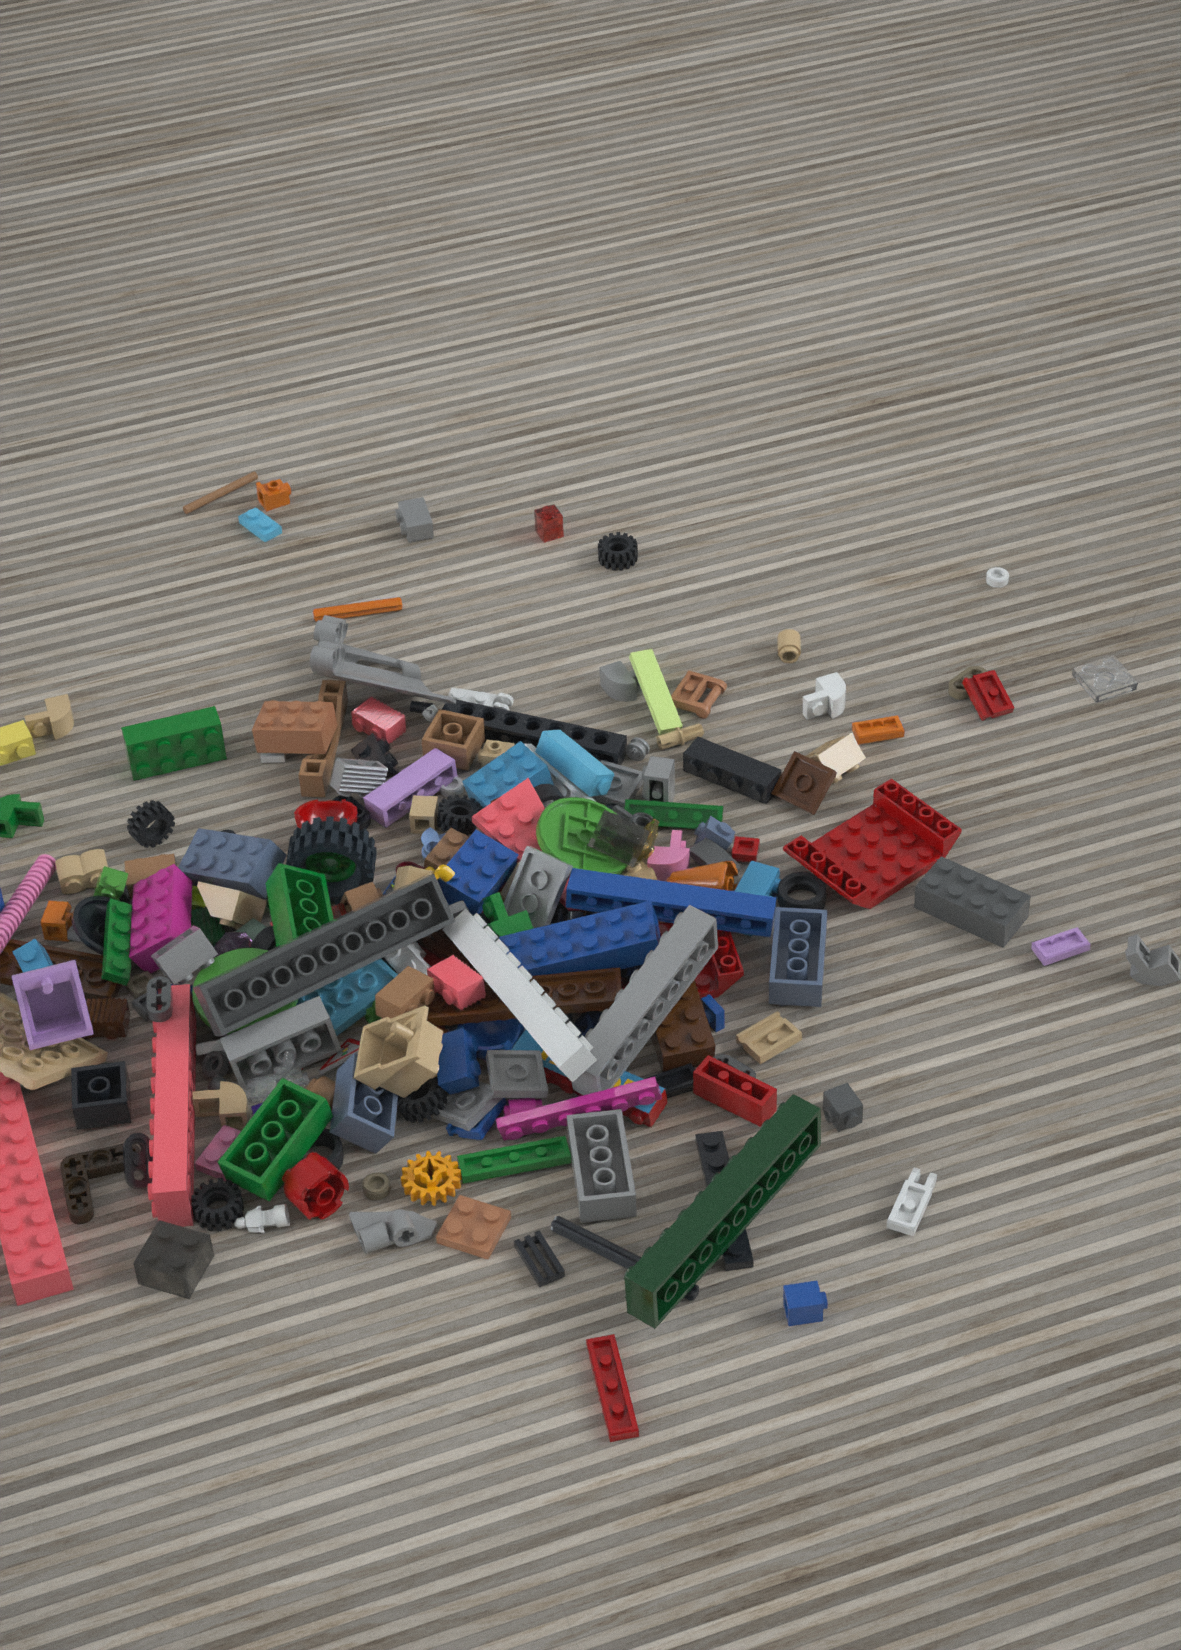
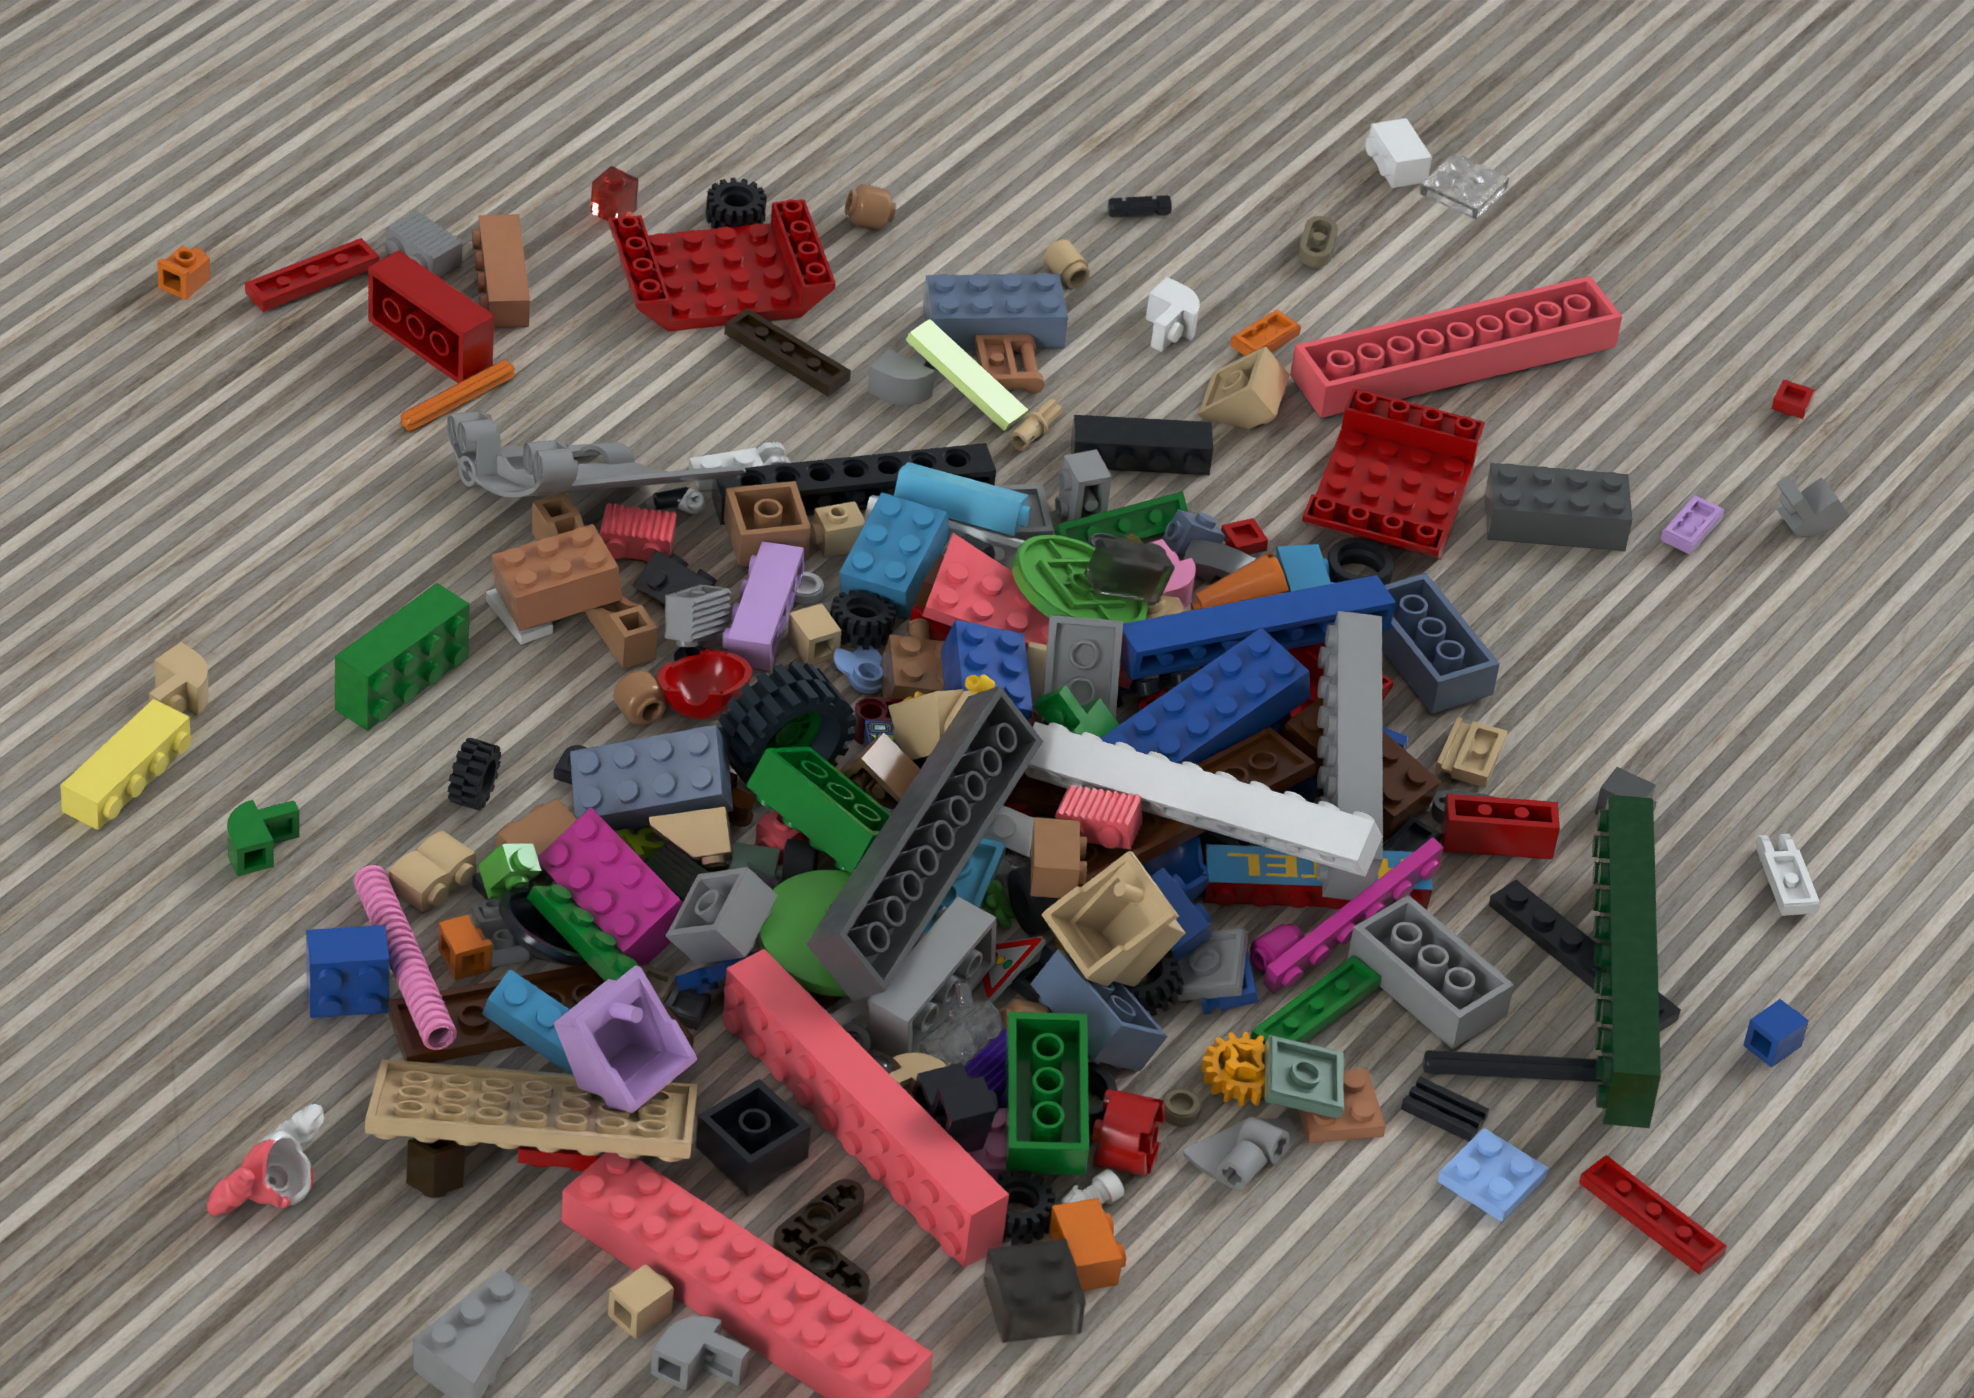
camera: 40 degrees left, 0 degrees up
(136, 1161) = (878, 1195): black plate -> none
(164, 999) = (757, 977): dark grey beam -> none
(213, 1125) = (957, 1104): none -> black brick
(220, 492) = (96, 293): medium nougat bar -> none
(233, 1245) = (1090, 1242): none -> orange piece
(260, 524) = (200, 320): medium azure plate -> none
(283, 814) = (640, 697): none -> medium nougat head
(340, 517) = (311, 274): none -> red plate
(373, 557) = (430, 317): none -> red brick
(446, 547) = (502, 269): none -> nougat brick
(454, 1198) = (1304, 1077): none -> sand green tile
(516, 1074) = (1253, 902): light grey plate -> none
(531, 1314) = (1493, 1174): none -> light blue plate
(567, 585) = (717, 273): none -> red slope
(568, 645) = (787, 352): none -> dark brown plate
(637, 749) = (1006, 449): light grey bush -> none
(696, 575) = (870, 207): none -> medium nougat head
(716, 656) = (997, 306): none -> sand blue brick
(804, 783) = (1248, 430): reddish brown plate -> none
(871, 626) = (1139, 206): none -> black axle
(988, 695) = (1360, 249): red plate -> none
(997, 577) = (1232, 96): white tile -> none
(998, 775) = (1457, 345): none -> coral brick
(1072, 644) = (1398, 153): none -> white brick

